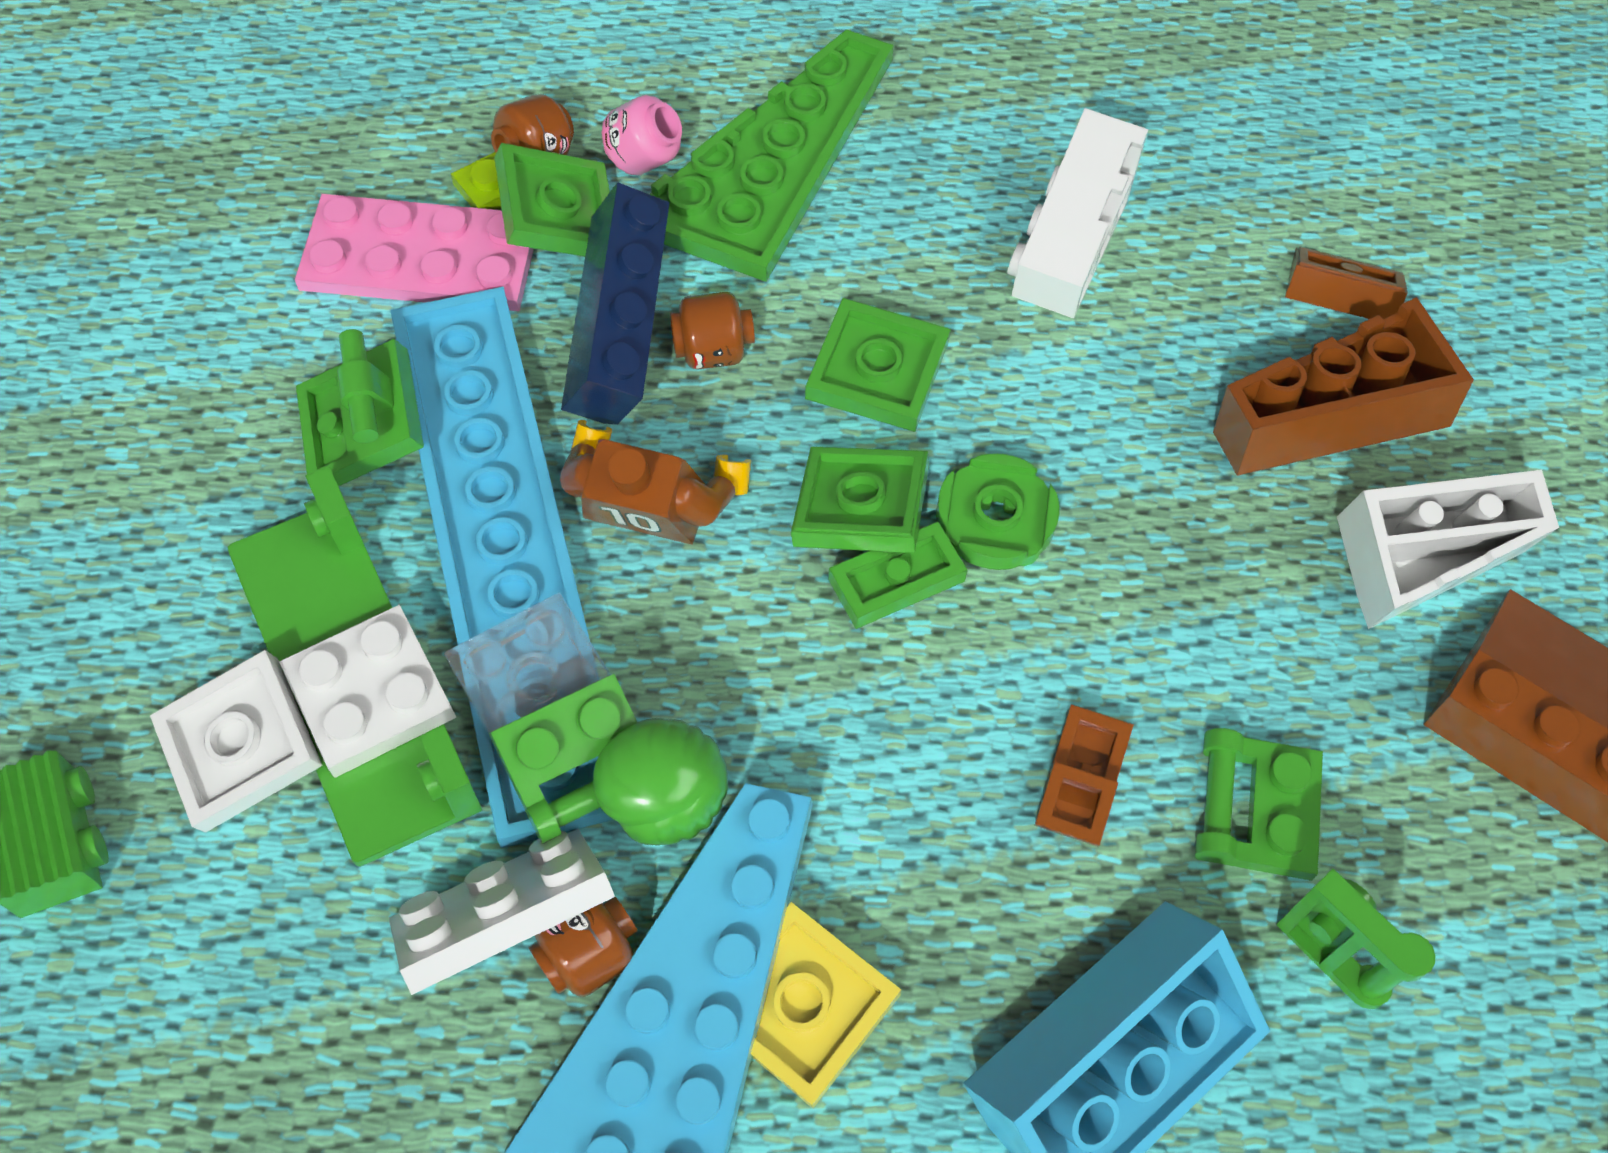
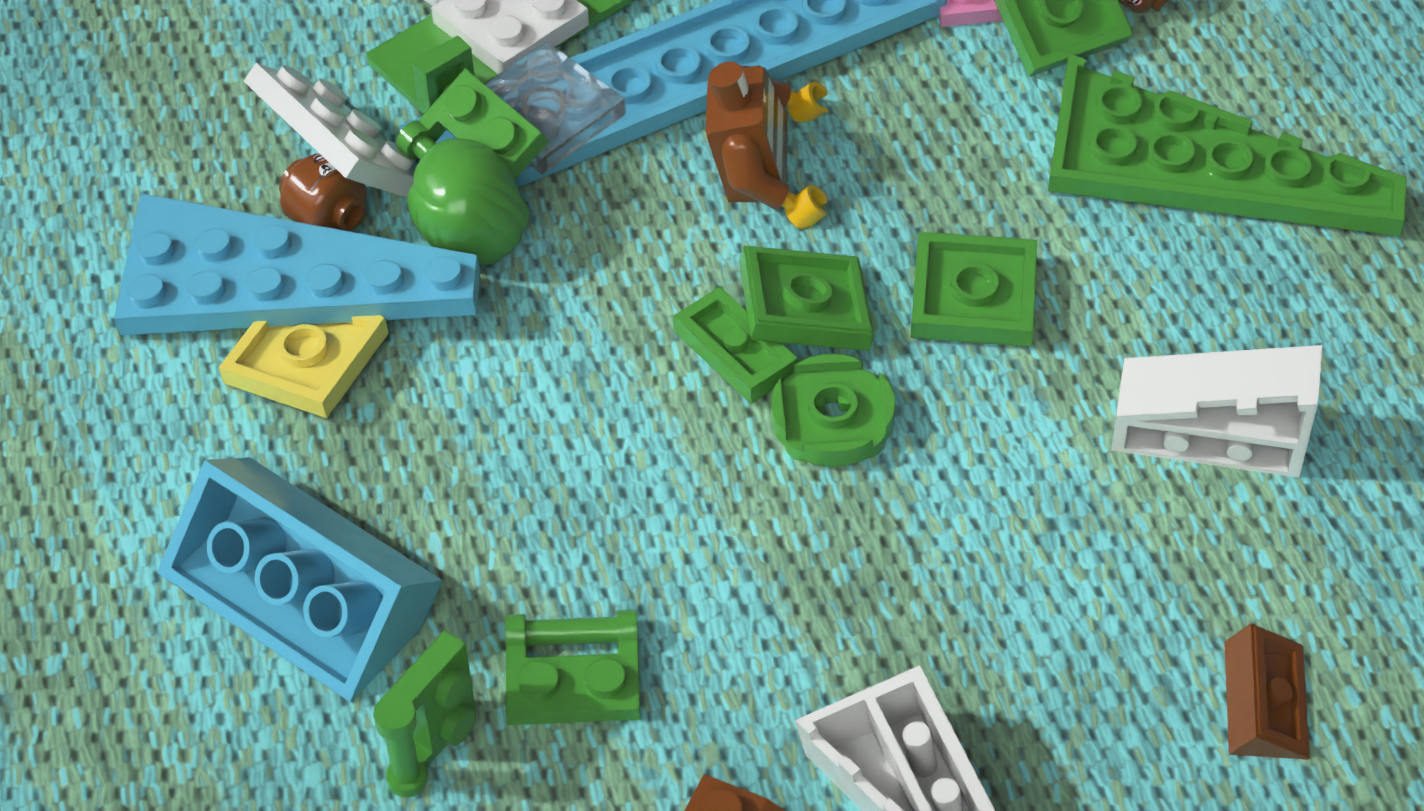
camera: 80 degrees right, 10 degrees down
(616, 306) = (949, 68): dark blue brick -> none
(641, 135) = (1171, 46): bright pink head -> none
(711, 330) = (961, 154): dark orange head -> none
(1084, 775) = (553, 522): dark orange slope -> none
(1346, 394) = (1080, 678): dark orange wedge -> none

